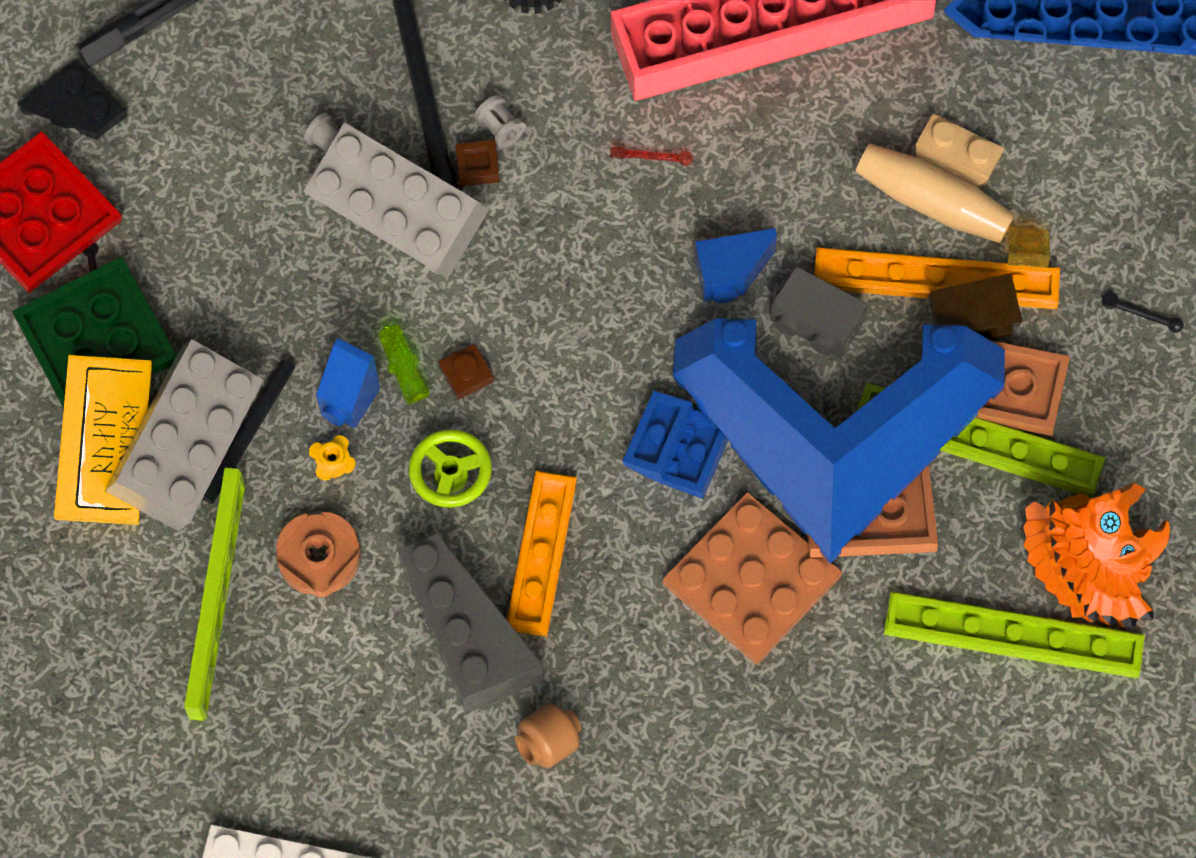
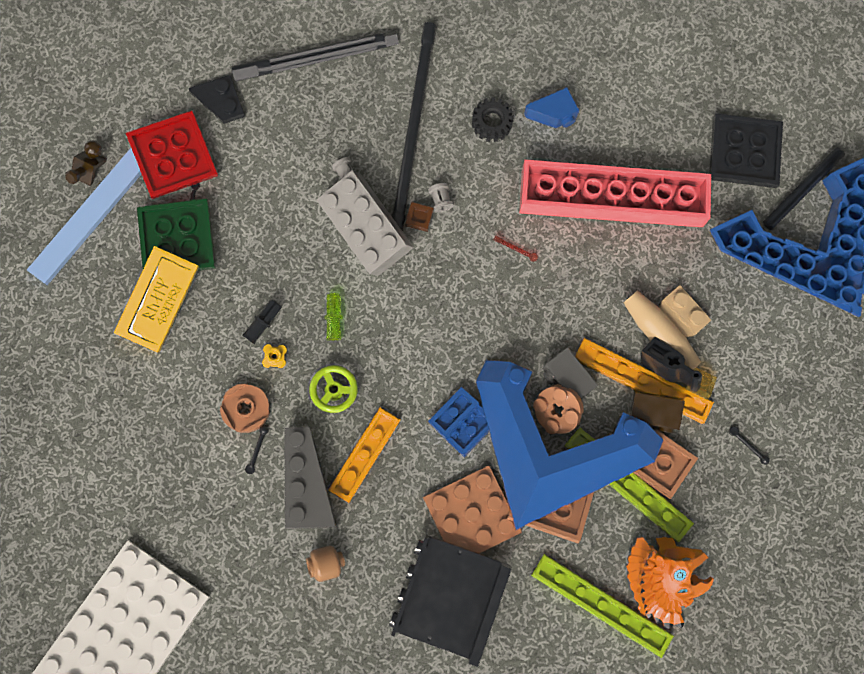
camera: 15 degrees right, 10 degrees up
(184, 435) = (198, 315): light grey brick -> none
(215, 595) = (180, 411): lime tile -> none
(250, 426) = (236, 322): black bar -> none
(289, 412) = (262, 321): none -> black axle
(347, 385) = (296, 320): blue slope -> none
(364, 644) = (250, 469): none -> black hinge
(465, 371) = (365, 334): reddish brown plate -> none
(732, 263) = (533, 330): blue slope -> none
(771, 711) = (451, 598): none -> black panel
(845, 364) = (564, 397): none -> nougat plate
(966, 233) = (669, 364): none -> black piece

